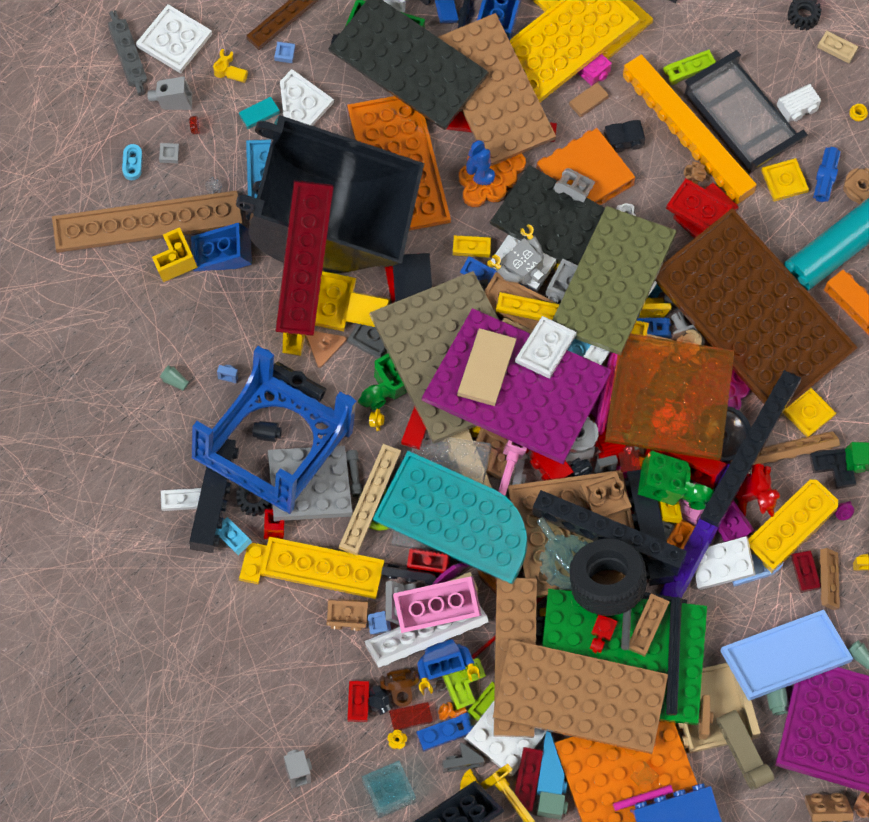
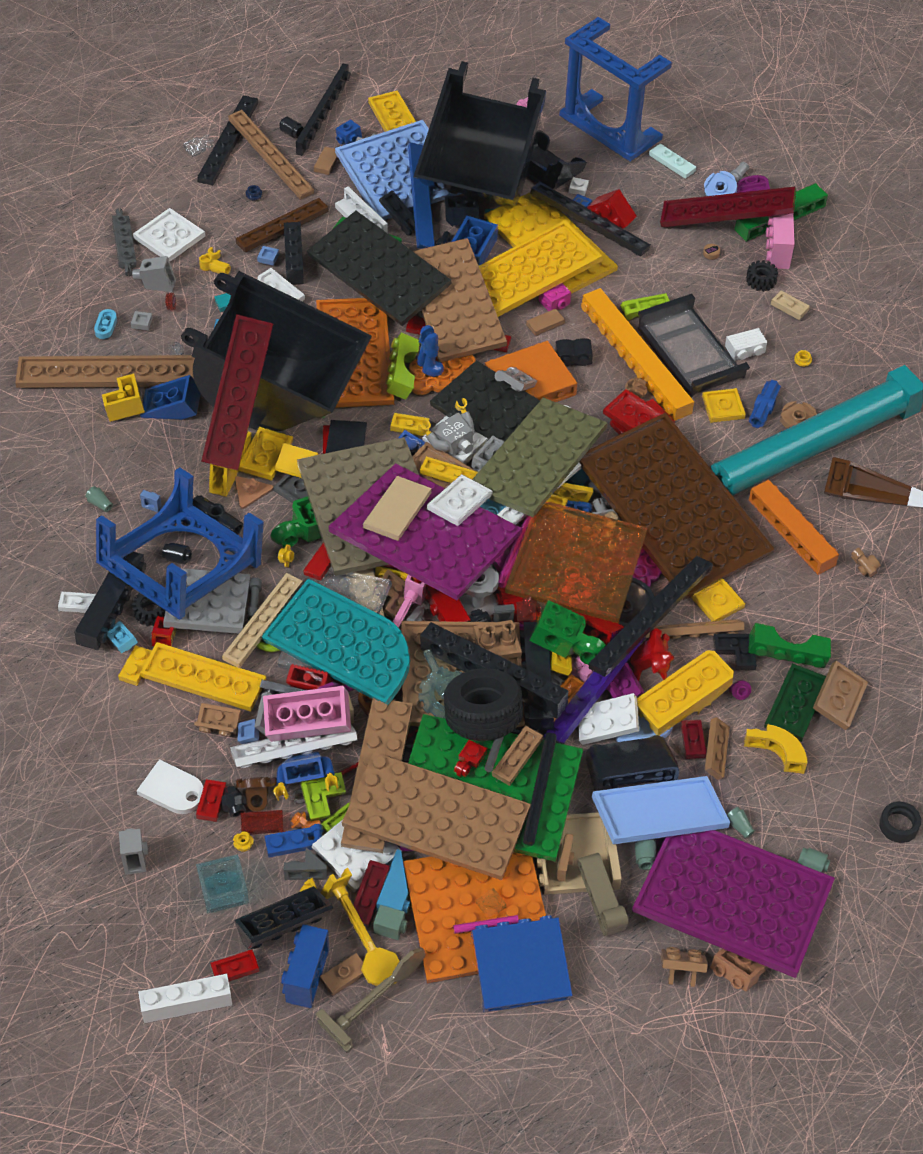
camera: 10 degrees right, 15 degrees down
(312, 47) = (293, 253): none -> black brick
(316, 691) = (171, 788): none -> white tile
(453, 196) = (400, 380): none -> lime arch
(751, 608) = (631, 762): none -> black windscreen

